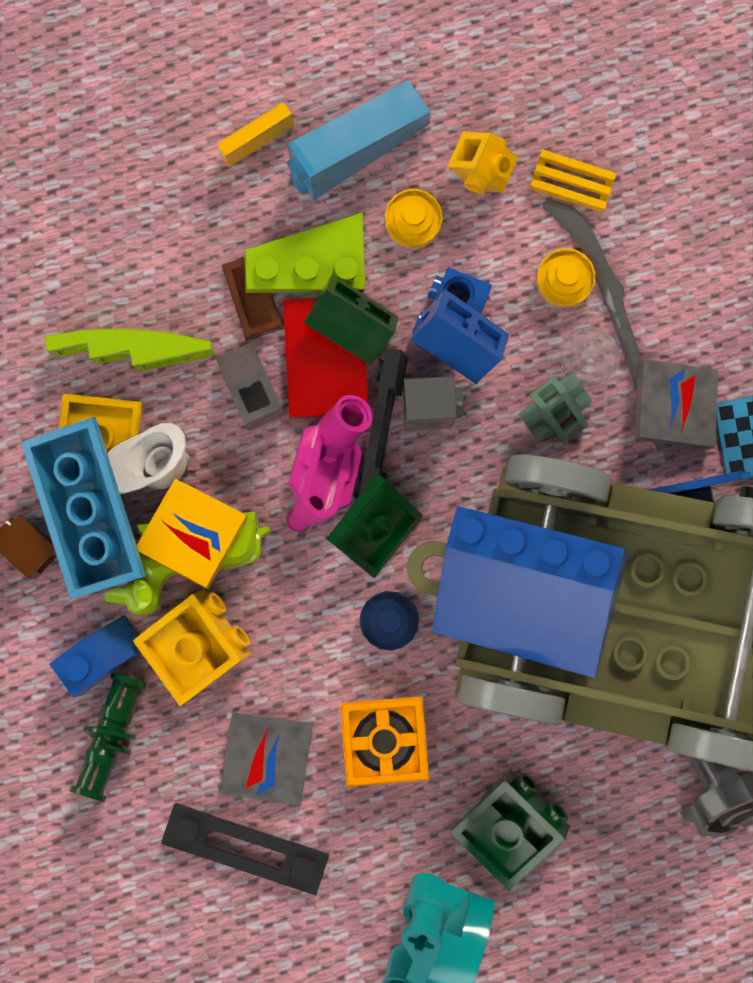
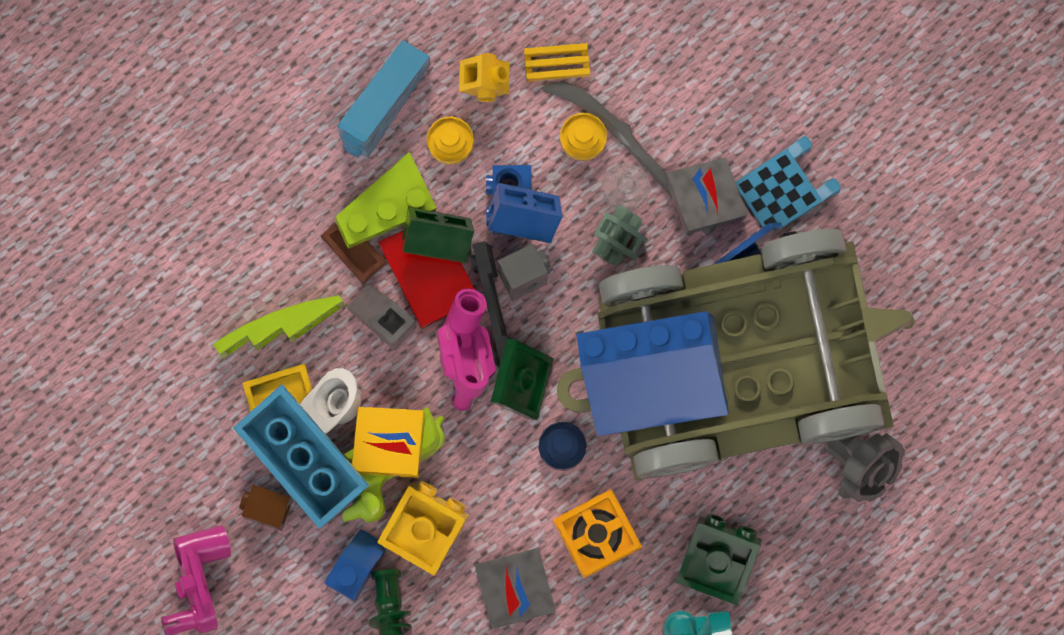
camera: 25 degrees left, 5 degrees down
(256, 134) = (304, 127): yellow tile -> none

